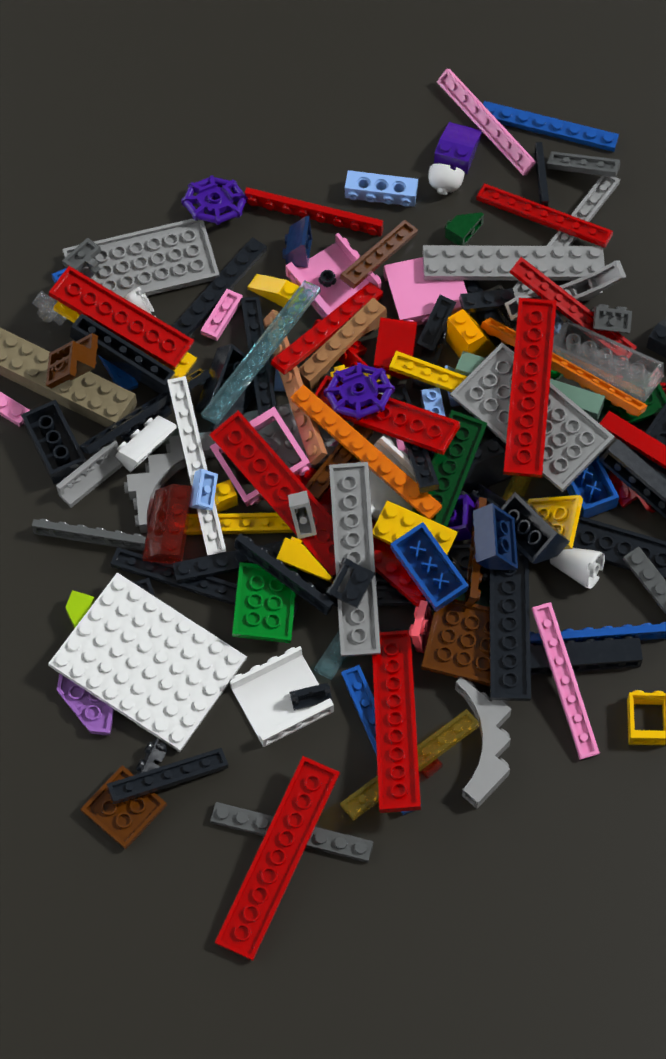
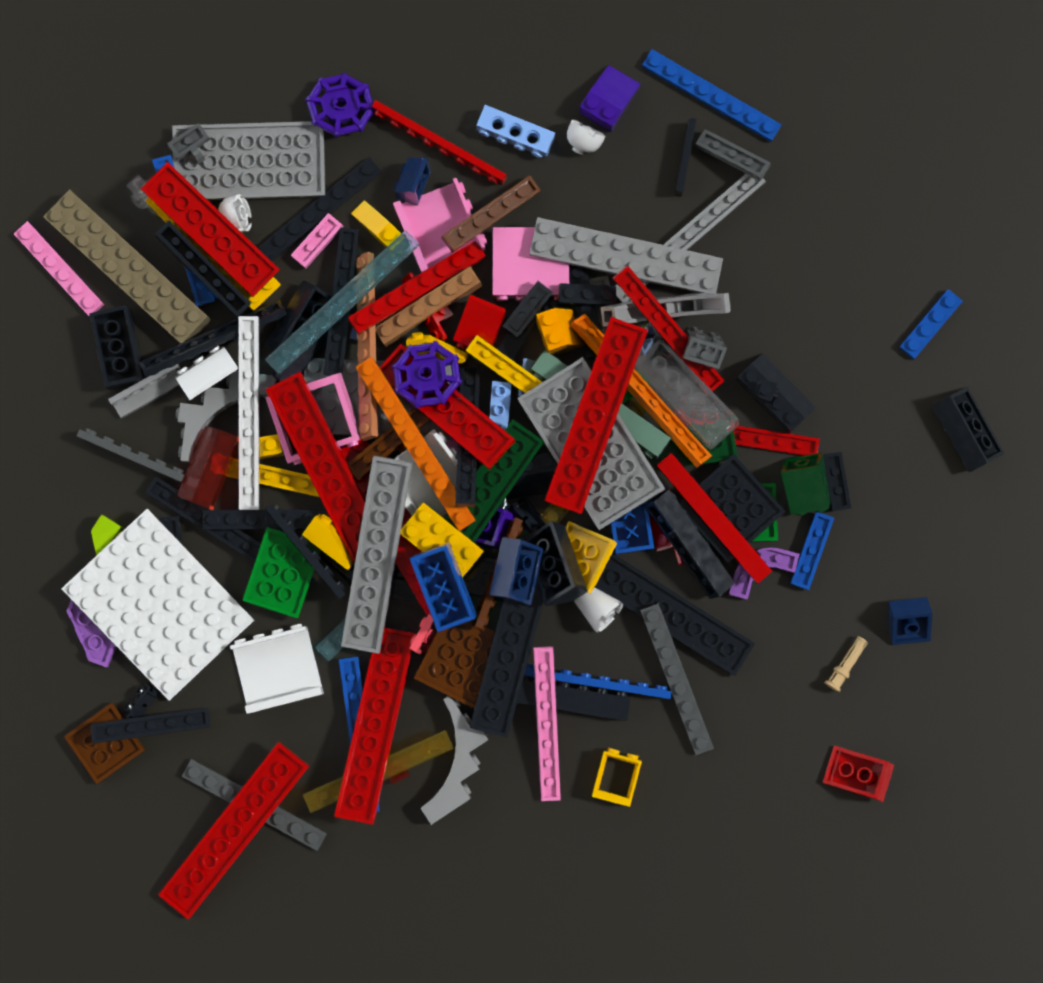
camera: 15 degrees right, 20 degrees up
(72, 360) = (151, 273): reddish brown bracket -> none
(203, 490) = (249, 443): light blue slope -> none
(302, 514) = (336, 497): light grey slope -> none
(310, 696) = (304, 676): black hinge -> none
(327, 274) = (438, 225): black plate -> none
(356, 585) = (371, 583): black plate -> none
(463, 227) = (587, 199): dark green slope -> none
(486, 122) = (646, 76): bright pink tile -> none
(544, 215) = (674, 205): red tile -> none

